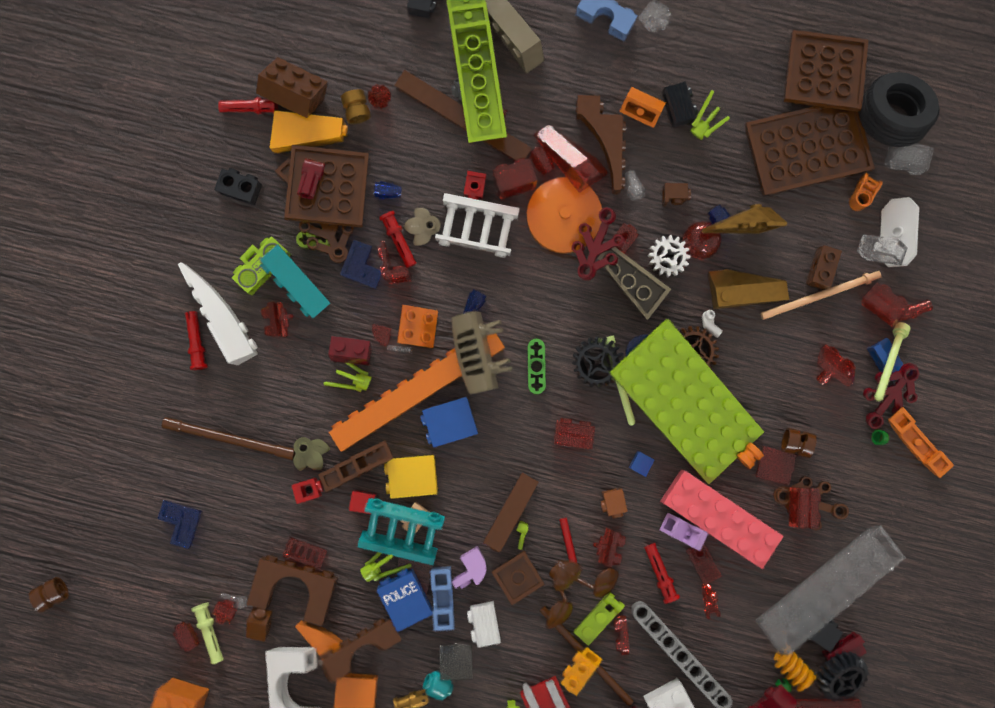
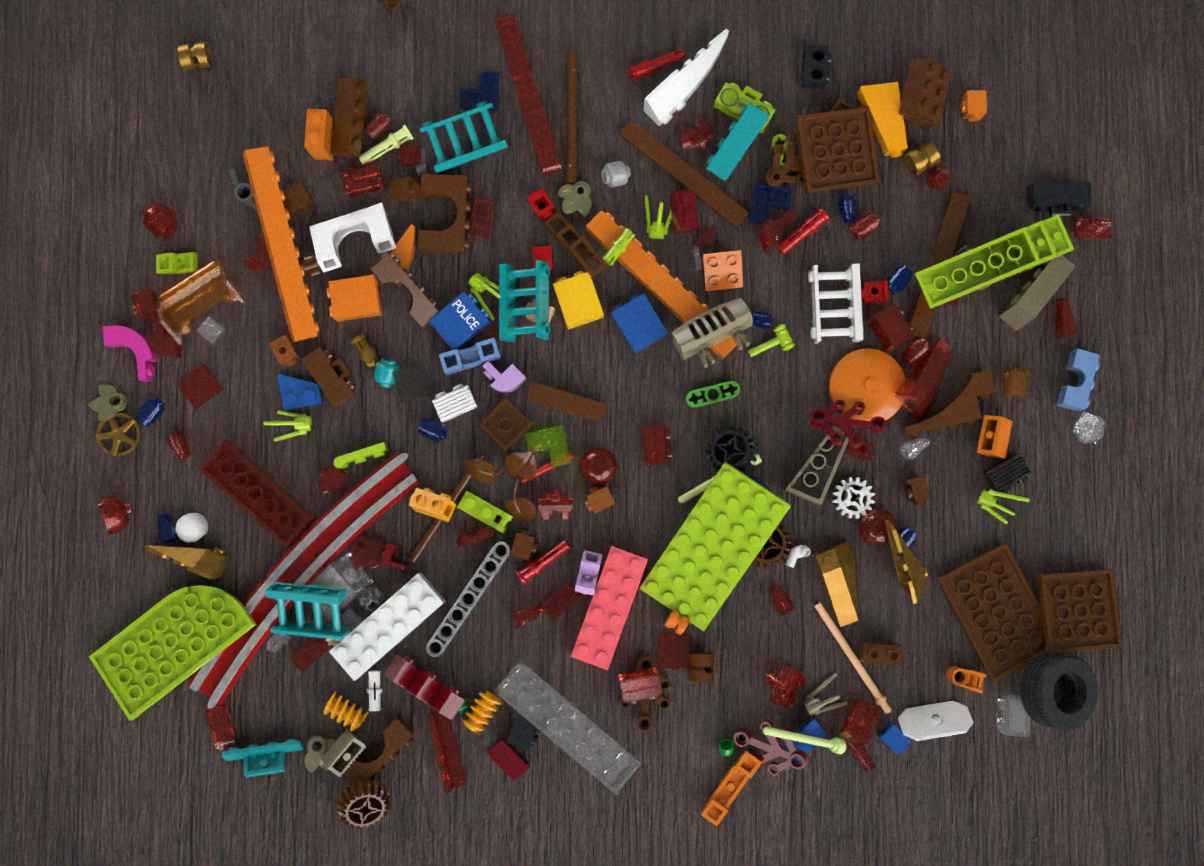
camera: 75 degrees right, 0 degrees up
(170, 664) = (349, 118): none -> reddish brown brick
(192, 476) = (528, 94): none -> clear red beam
(237, 664) = (362, 180): none -> clear red brick
(238, 560) = (460, 156): none -> teal fence
(257, 105) = (898, 64): red pin -> none
(295, 408) = (615, 174): none -> light grey head
(311, 174) = (846, 131): dark red piece -> none
(311, 341) = (684, 173): none -> reddish brown tile
(315, 44) = (973, 105): none -> orange brick
(370, 424) = (618, 246): none -> lime pin
(408, 177) = (865, 226): none -> clear red brick
(419, 226) = (819, 249): dark tan plate -> none
(468, 158) = (899, 279): none -> clear blue brick
(498, 285) = (783, 338): none -> lime piece
(506, 652) = (432, 430): none -> clear blue brick
(523, 529) = (554, 418): lime hand -> none
(544, 534) = (550, 439): none -> clear neon green plate
(547, 12) = (1065, 321): none -> clear red slope
(580, 495) = (598, 466): none -> clear red cylinder
(595, 73) = (1016, 383): none -> clear orange brick
(641, 463) = (643, 518): blue slope -> none
(641, 588) = (524, 545): none -> reddish brown brick
(752, 349) = (782, 601): none -> clear red cone
(842, 676) = (486, 758): black gear -> none
(858, 342) = (815, 706): none -> dark tan plant
(882, 249) = (913, 706): clear brick -> none
(906, 275) = (894, 738): none -> blue brick

